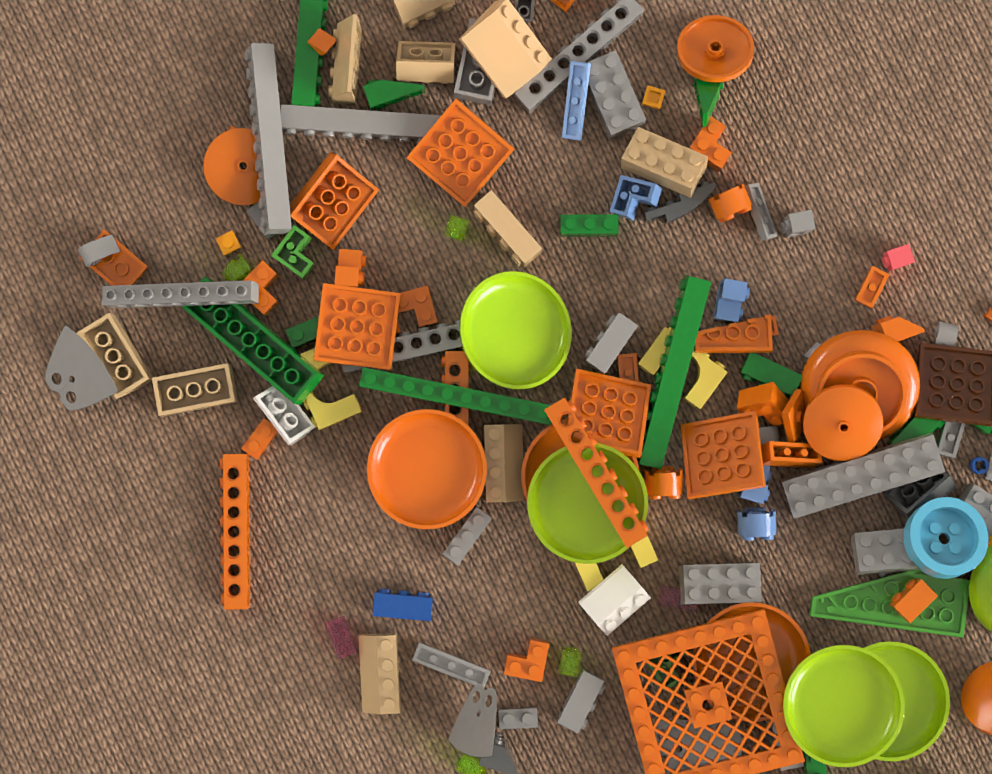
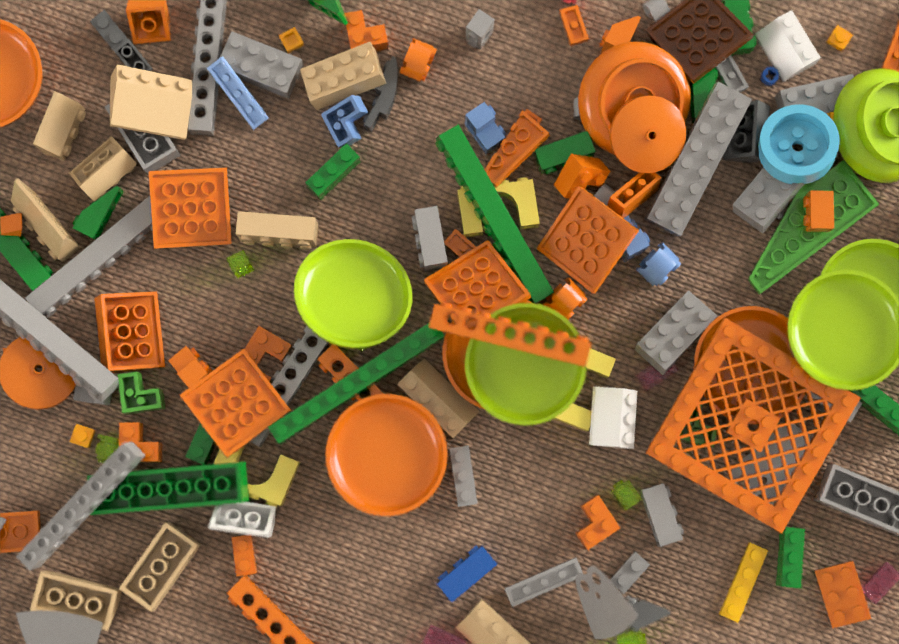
camera: 45 degrees left, 5 degrees down
(760, 213) = (446, 48): light grey plate -> none
(793, 415) = (609, 163): orange plate -> none

